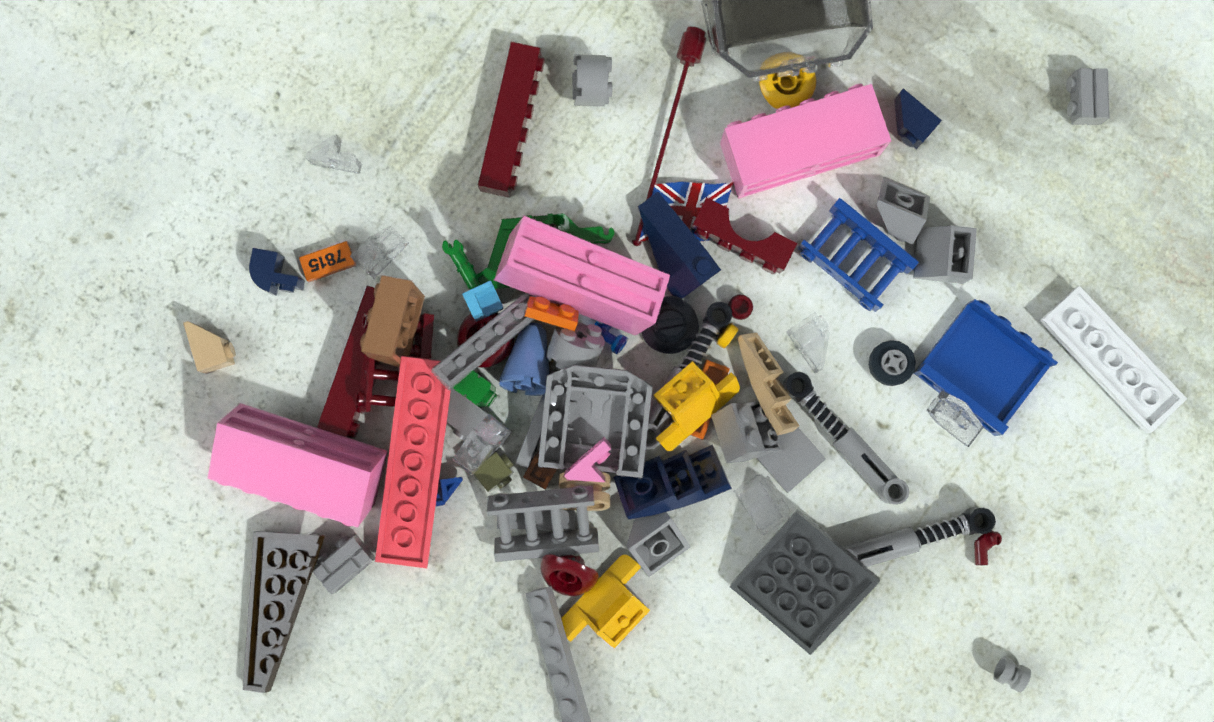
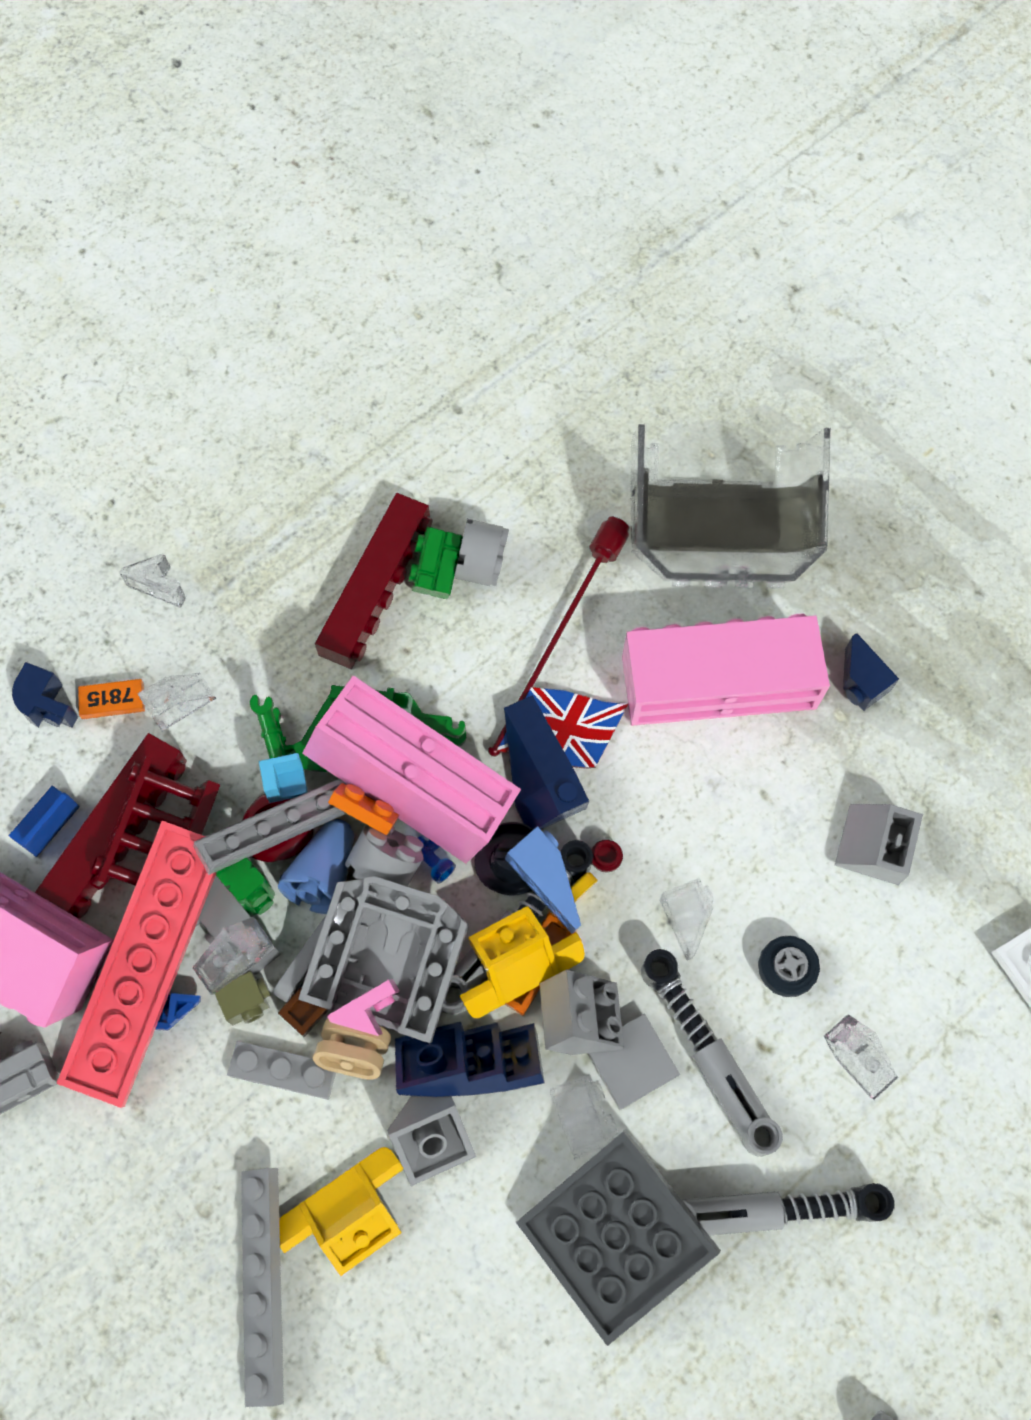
camera: 10 degrees right, 15 degrees down
(304, 369) = (44, 821): none -> blue panel
(392, 320) = (164, 776): medium nougat slope -> none
(538, 545) = (283, 1109): light grey fence -> none
(557, 96) = (436, 562): none -> green brick
(568, 574) = (303, 1156): dark red hat -> none
(699, 332) = (543, 870): none -> medium blue slope
(714, 223) = (656, 794): dark red arch -> none
(764, 376) = (618, 950): tan slope -> none
(788, 89) = (716, 604): yellow hat -> none
(880, 246) = (798, 816): blue fence -> none
(902, 210) = (832, 777): light grey slope -> none
(983, 544) = (875, 1239): dark red arm -> none
(985, 365) = (913, 995): blue panel -> none

